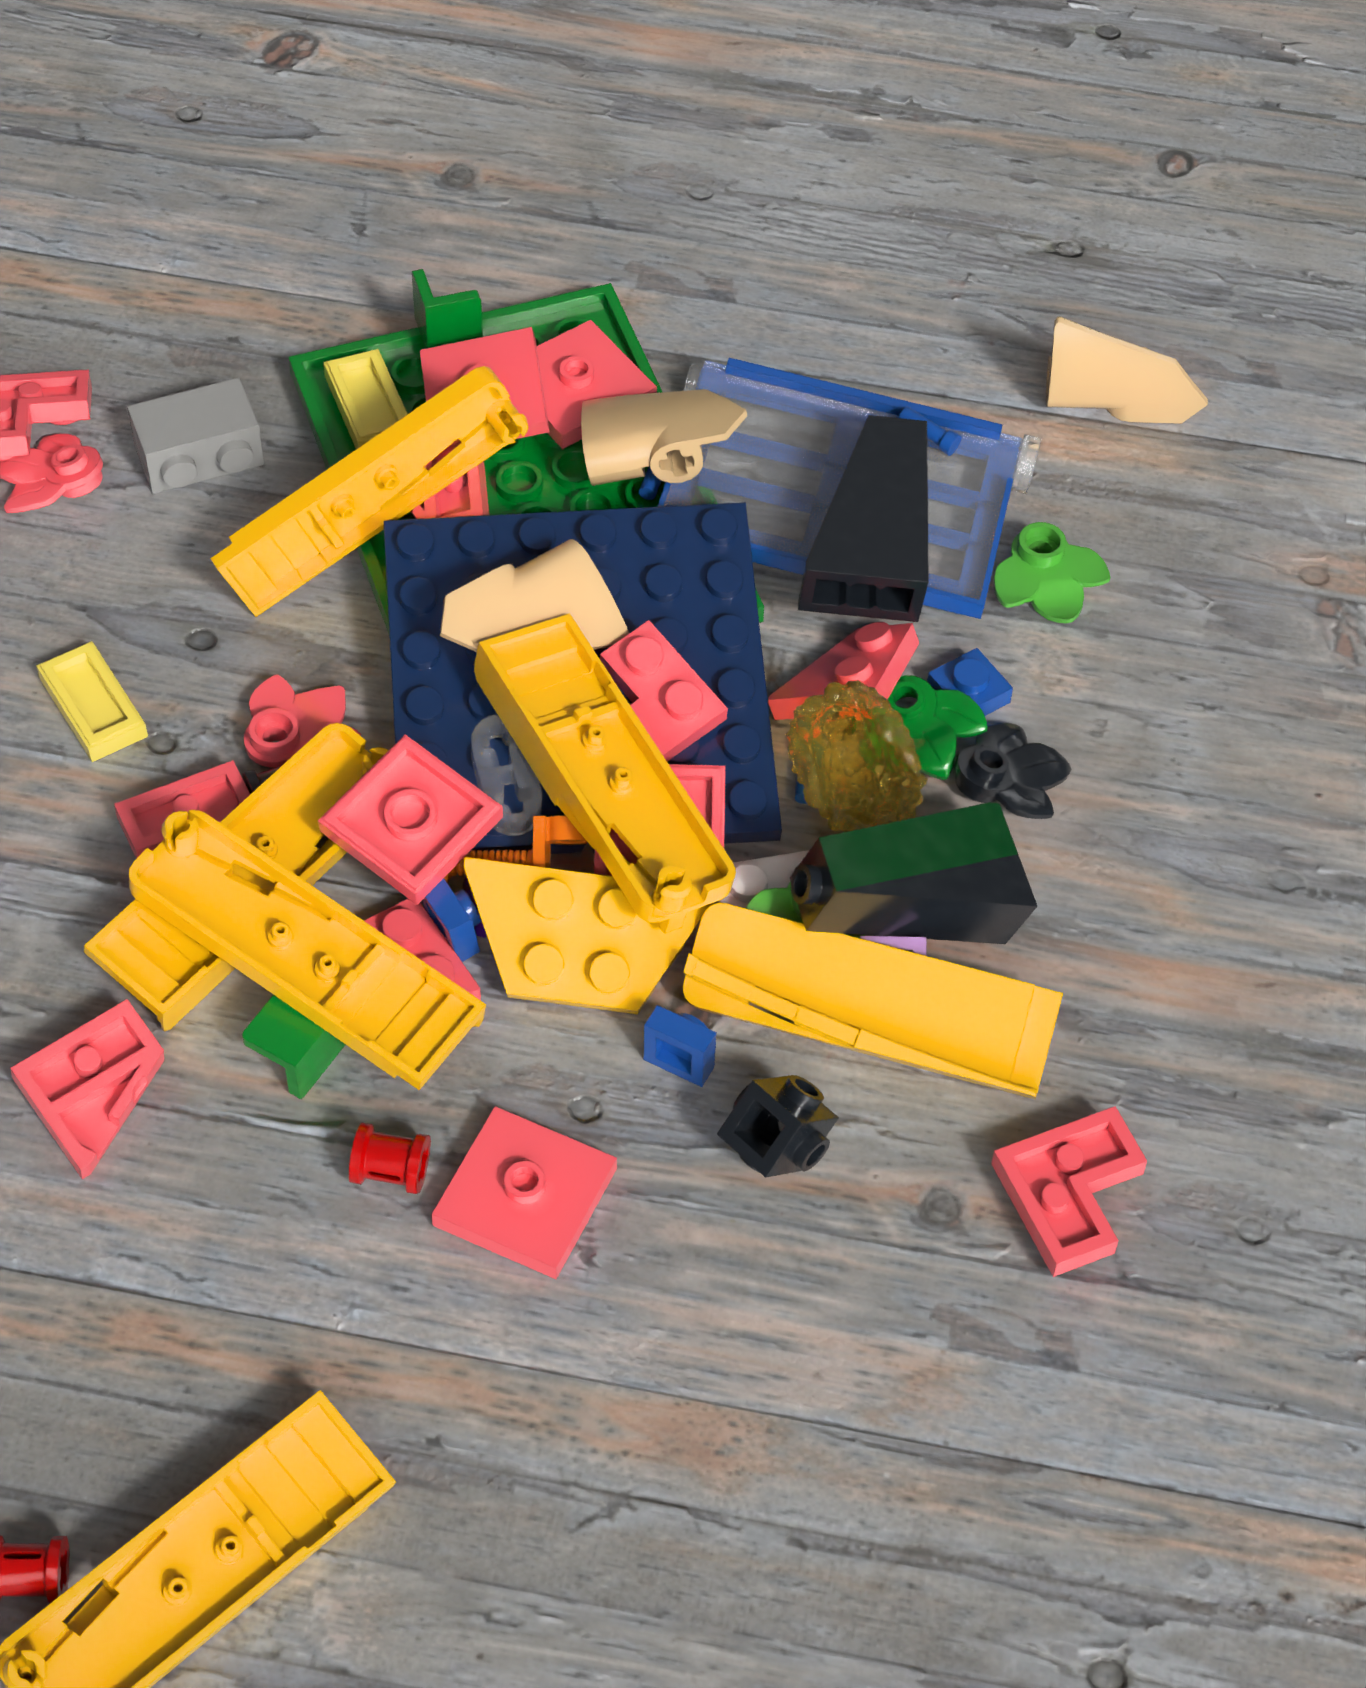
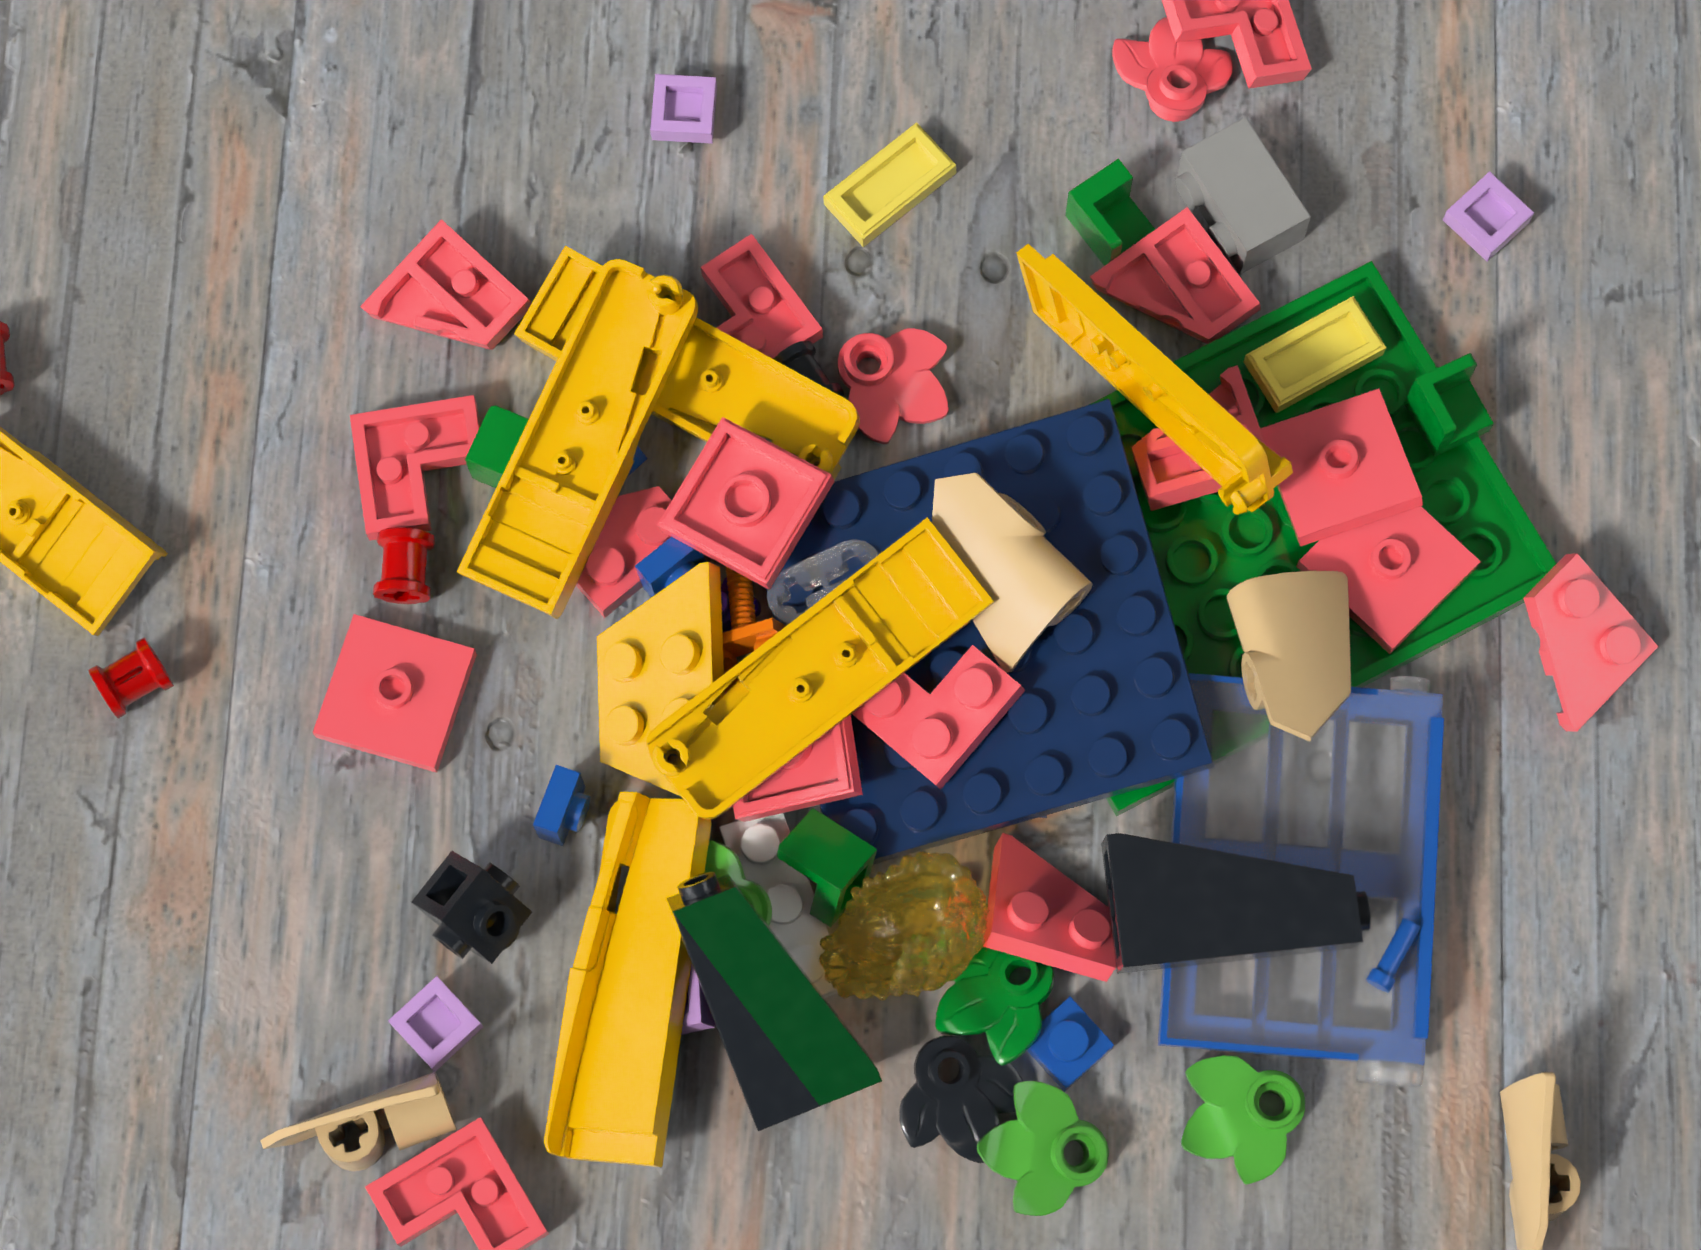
camera: 85 degrees right, 20 degrees up
(184, 542) = (1106, 213): none -> green panel
(257, 480) = (1180, 280): none -> coral wing
(259, 1154) = (397, 447): none -> coral plate
(268, 282) = (1488, 216): none -> lavender plate
(456, 1443) = (110, 678): none -> red bush
(667, 282) = (1584, 638): none -> coral wing
(777, 814) = (829, 858): none -> green panel
(890, 1187) = (435, 1023): none -> lavender plate
(994, 1250) = (412, 1111): none -> tan panel
(1068, 709) = (1035, 1145): none -> bright green plate

